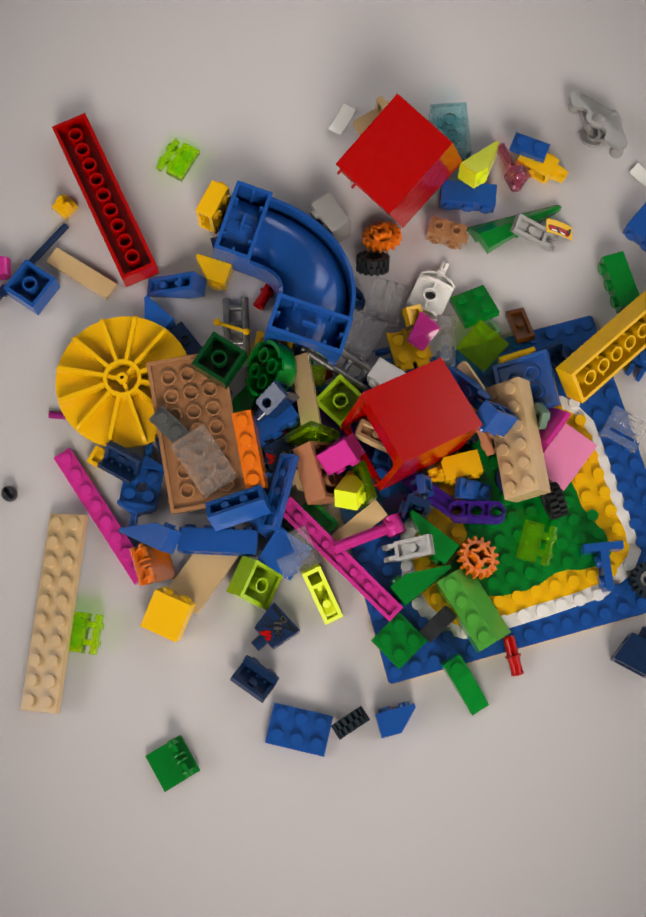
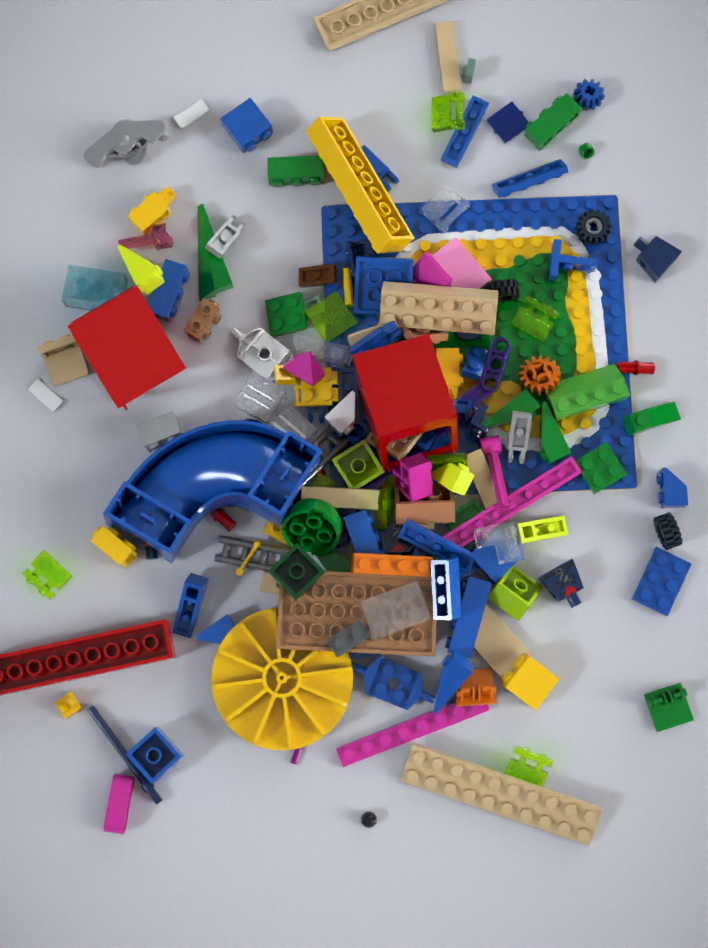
camera: 75 degrees left, 5 degrees up
(81, 273) = (149, 701): tan tile -> none
(96, 456) = (354, 719): yellow plate -> none
(121, 462) = (368, 697): dark blue bracket -> none
(186, 339) = (249, 607): dark blue plate -> none
(215, 271) = (184, 562): yellow slope -> none
(255, 678) = (607, 611): dark blue bracket -> none
(275, 400) = (348, 522): dark blue torso -> none
(372, 263) = (217, 401): black tyre -> none
(381, 236) = (190, 384): orange gear -> none
(438, 623) = (595, 427): black tyre -> none
(495, 418) = (420, 320): blue brick -> none
(529, 147) = (134, 216): blue plate -> none
(542, 415) = (420, 277): sand green plate -> none
(559, 228) = (226, 211): yellow sticker -> none

